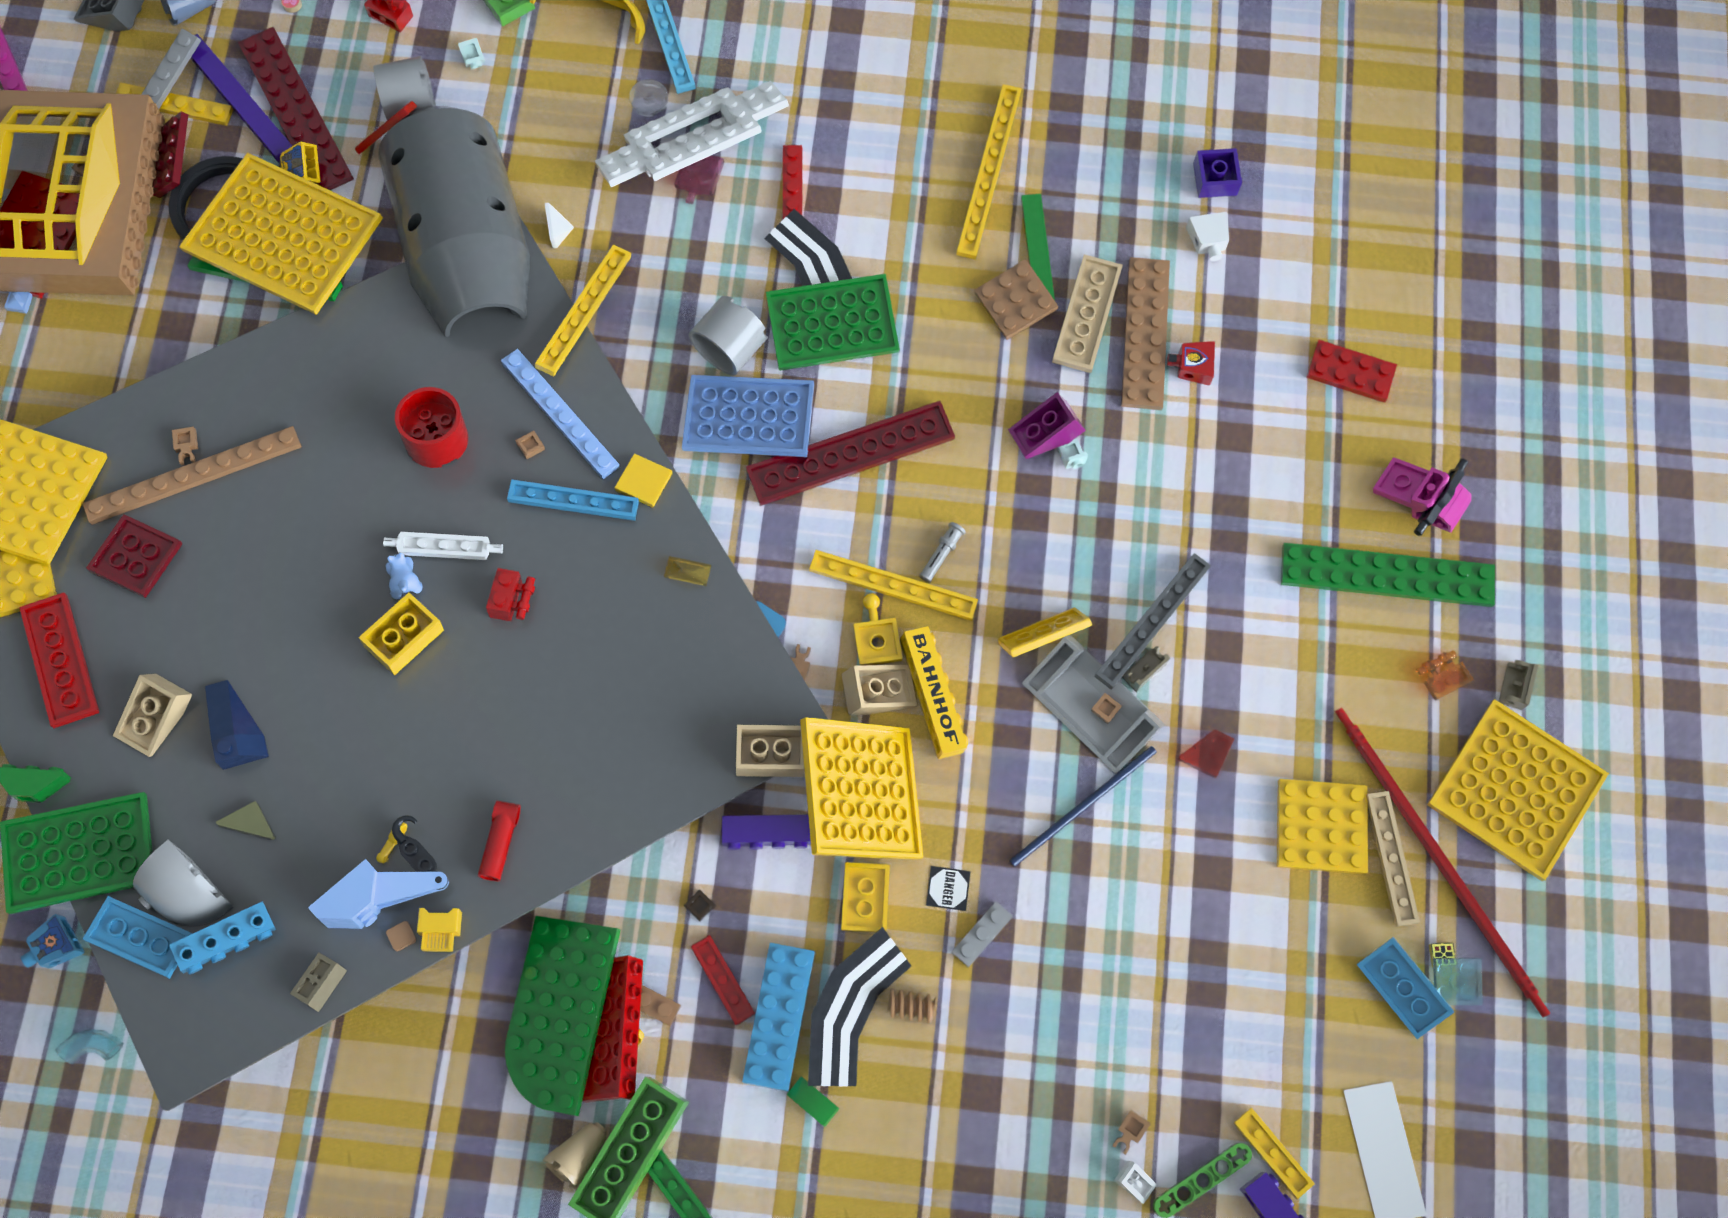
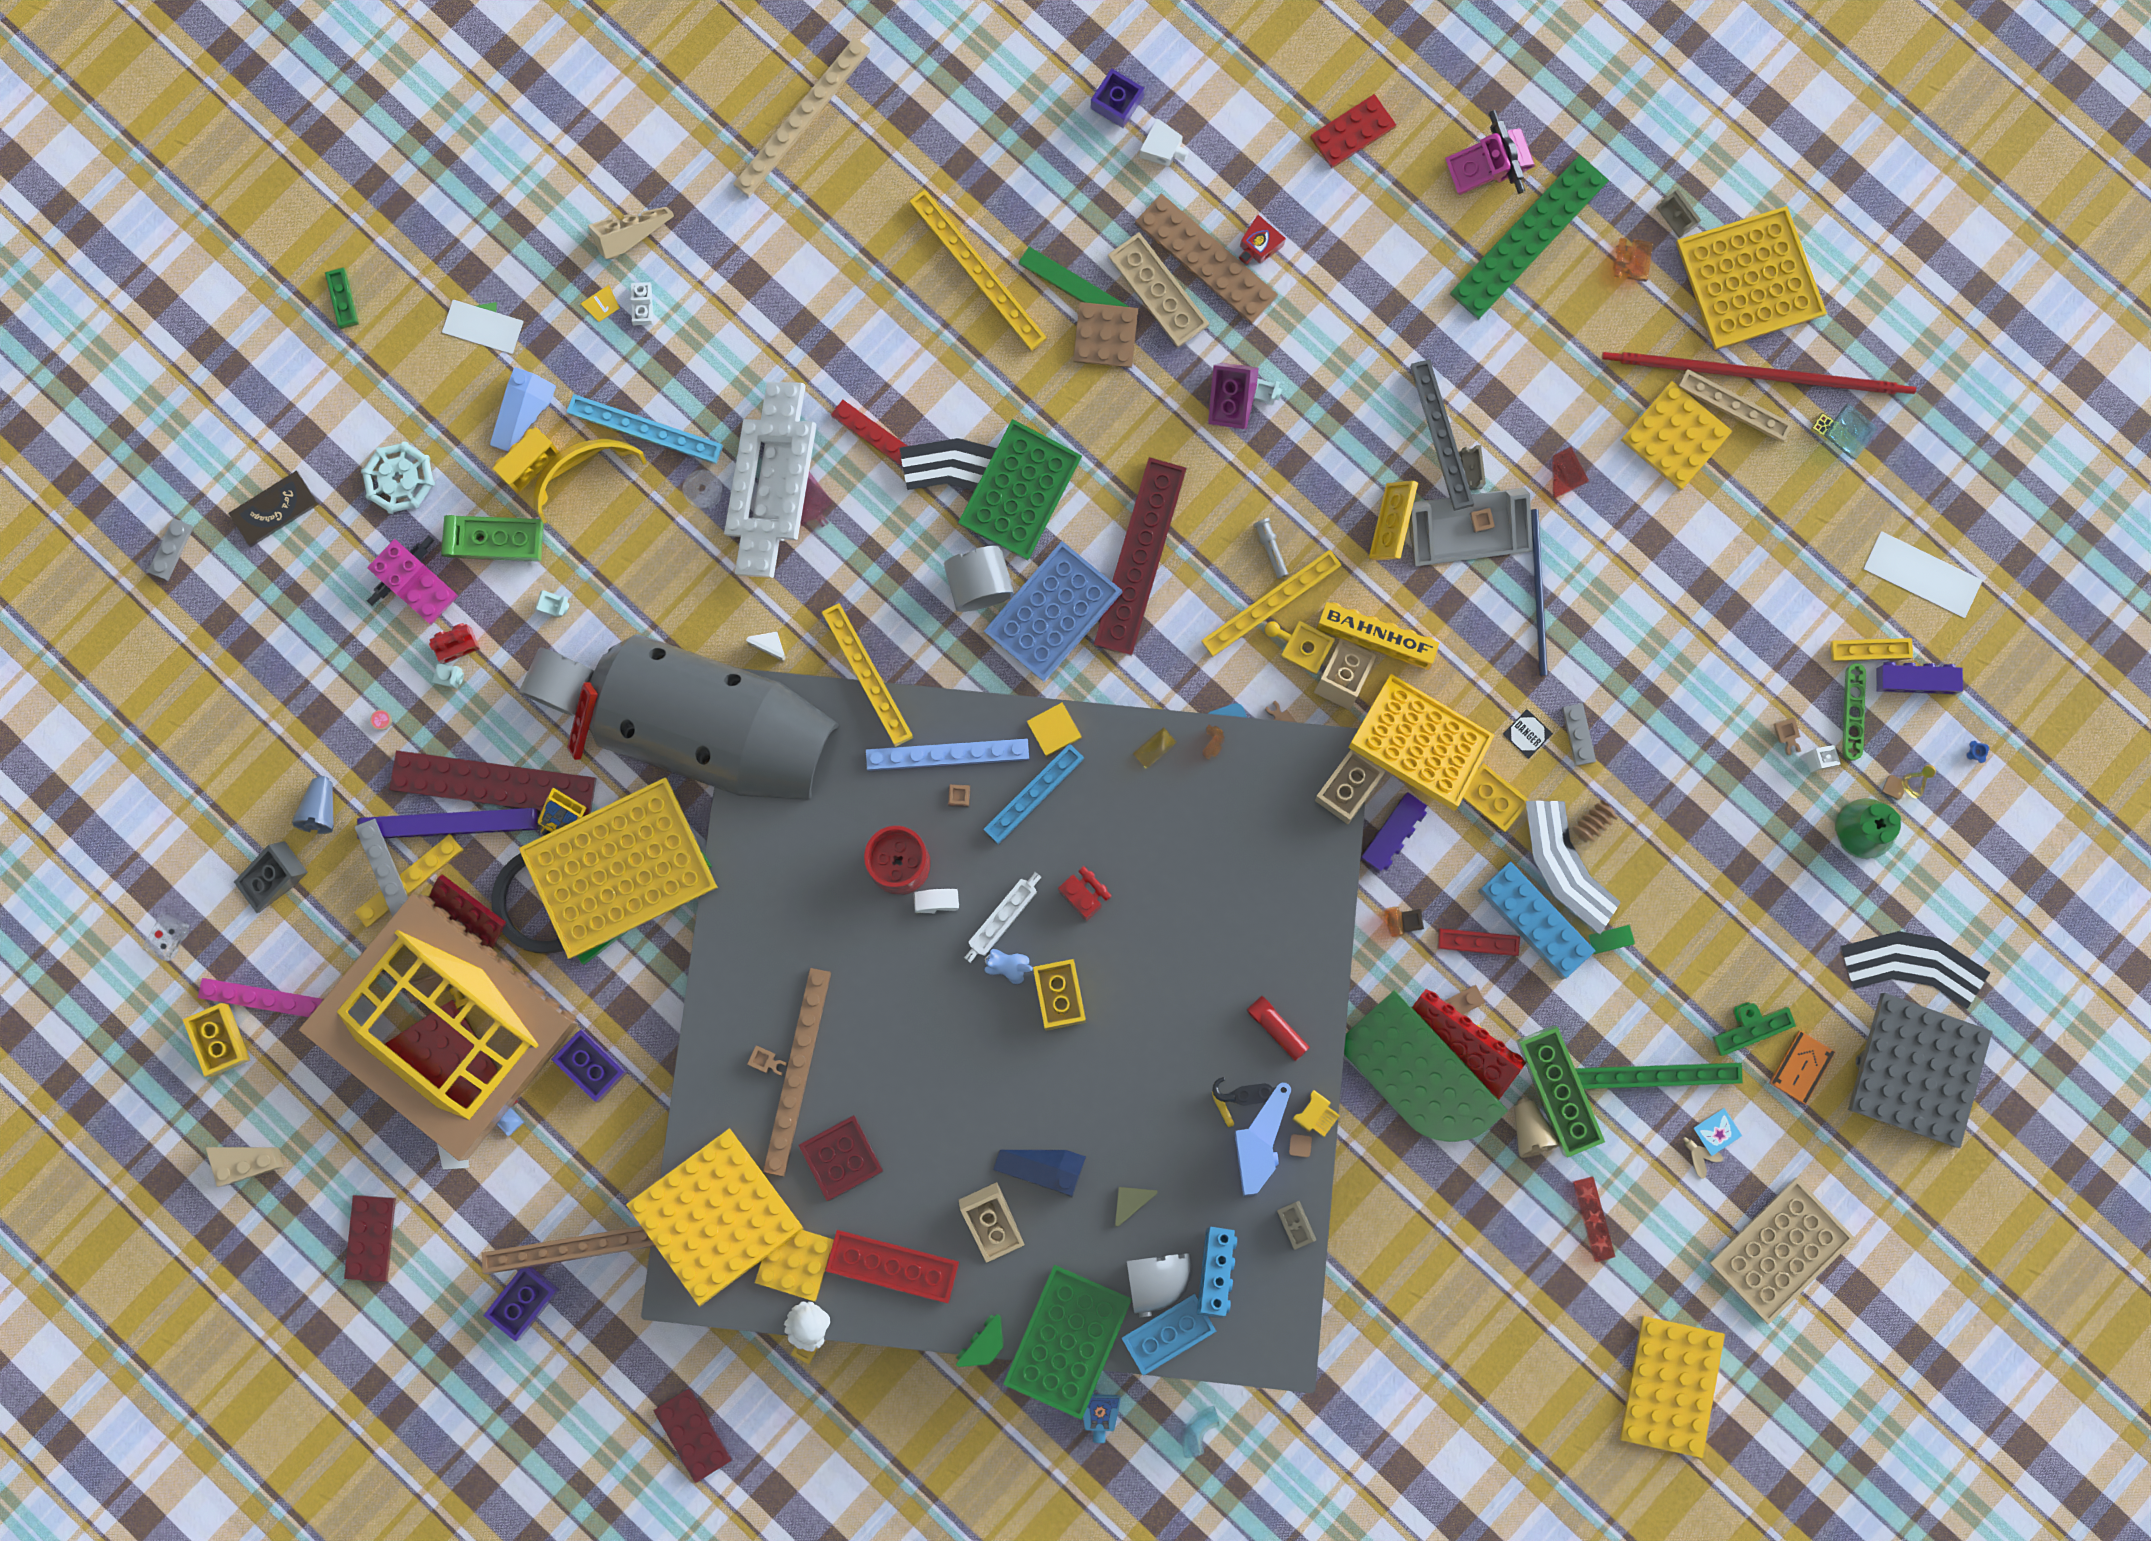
camera: 55 degrees left, 10 degrees up
(102, 325) = (589, 1065): none -> dark purple brick
(360, 23) = (448, 675): none -> light aqua bracket
(421, 483) = (936, 899): none -> white slope
(686, 888) = (1393, 920): none -> clear orange cone
(722, 615) = (1214, 746): none -> clear orange bracket
(1405, 988) = (1829, 471): dark azure plate -> none

